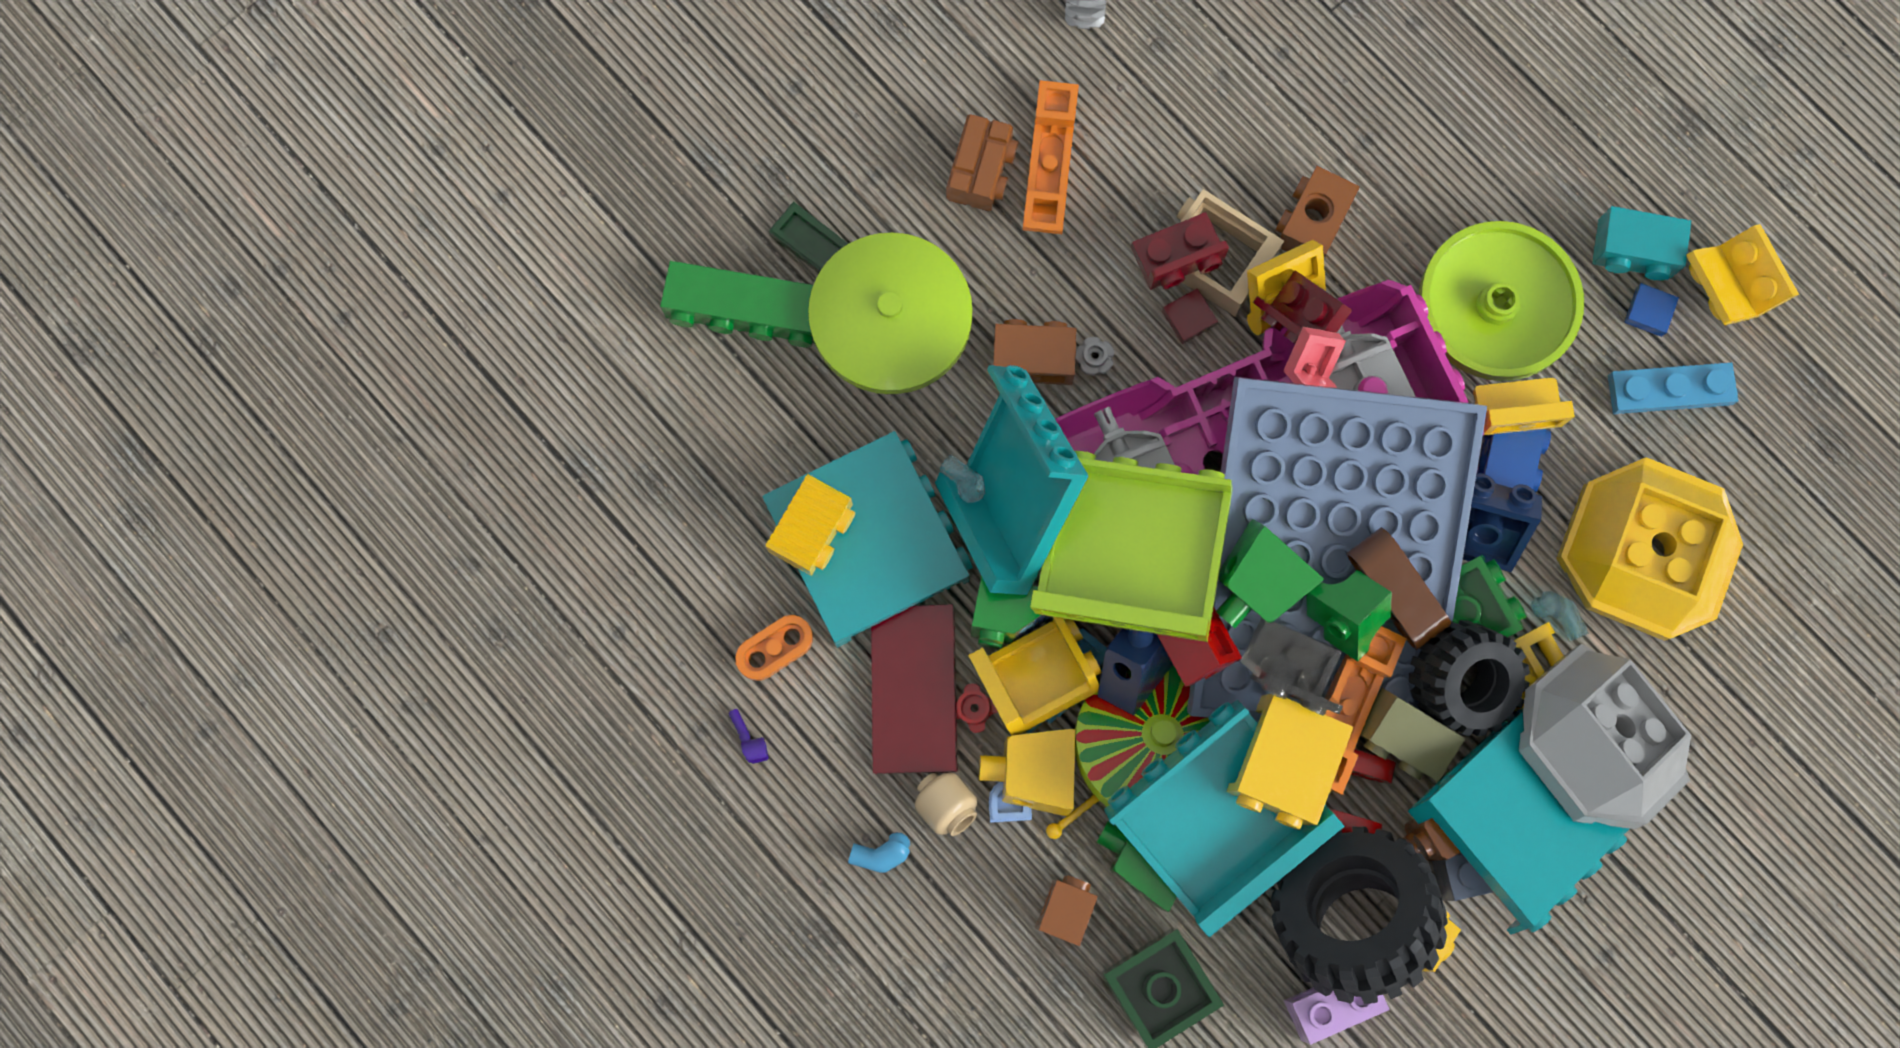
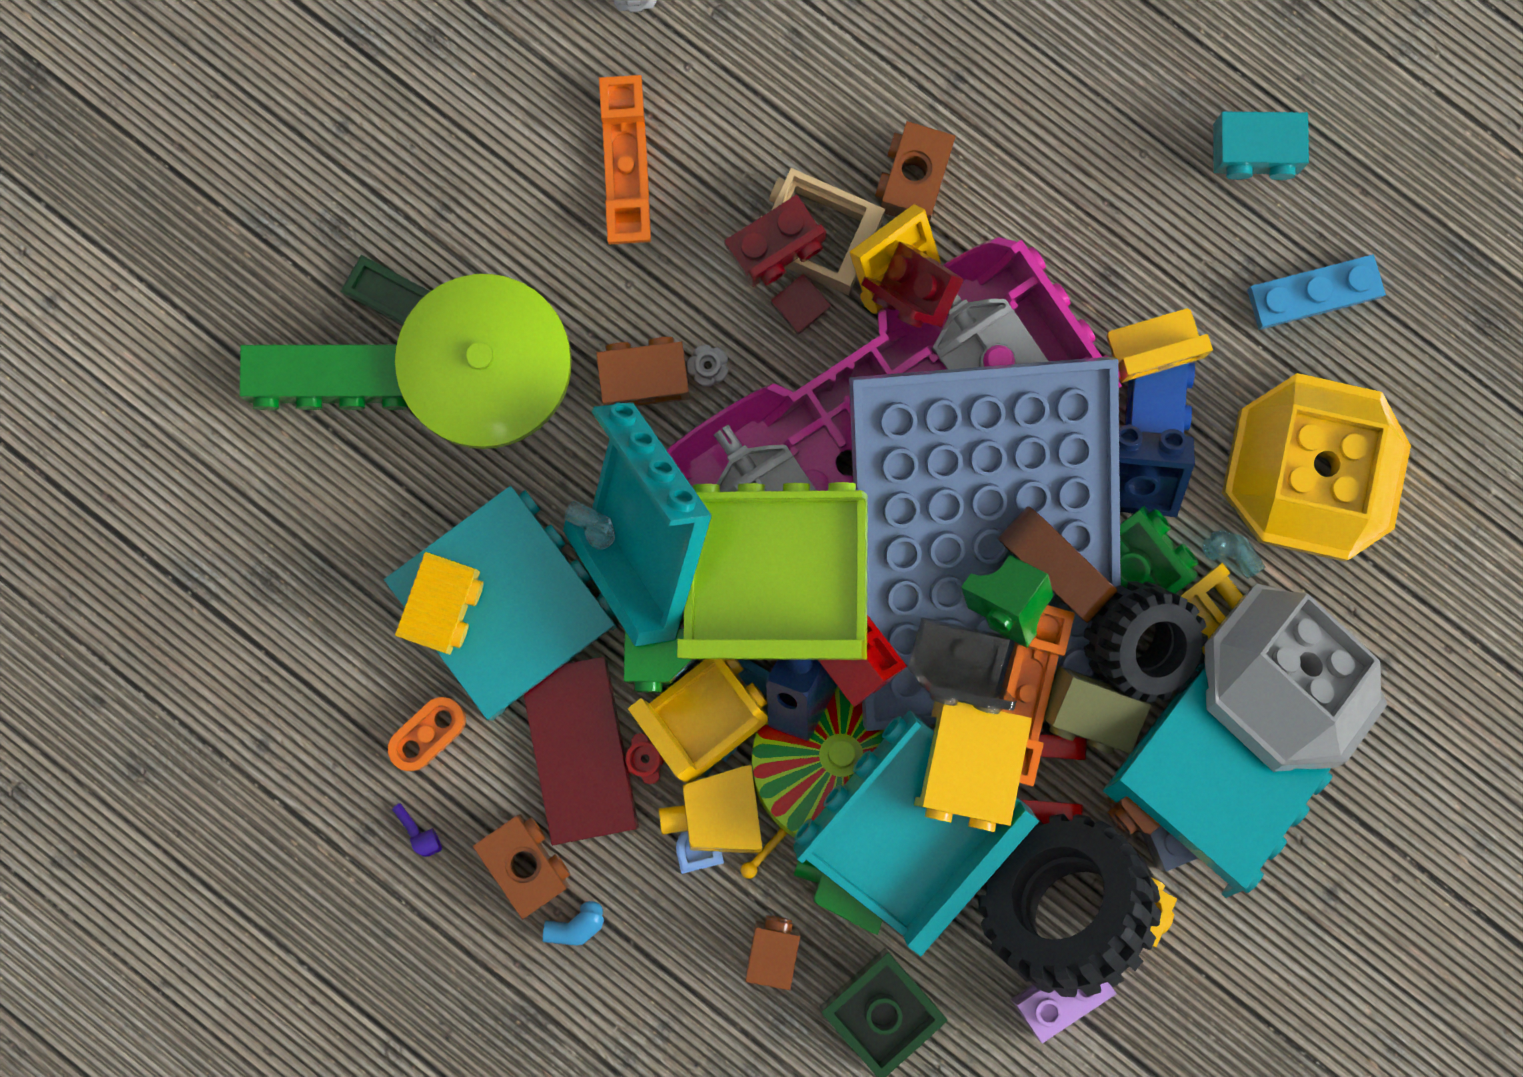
camera: 10 degrees left, 5 degrees up
(823, 769) = (499, 853): none -> dark orange brick
(946, 803) = (632, 863): tan head -> none
(980, 162) = (552, 178): dark orange brick -> none
(1263, 577) = (914, 580): green torso -> none
(1314, 357) = (932, 339): coral bracket -> none
(1503, 300) = (1123, 232): lime dish -> none
(1651, 310) = (1282, 212): blue tile -> none
(1742, 276) = (1369, 162): yellow bracket -> none

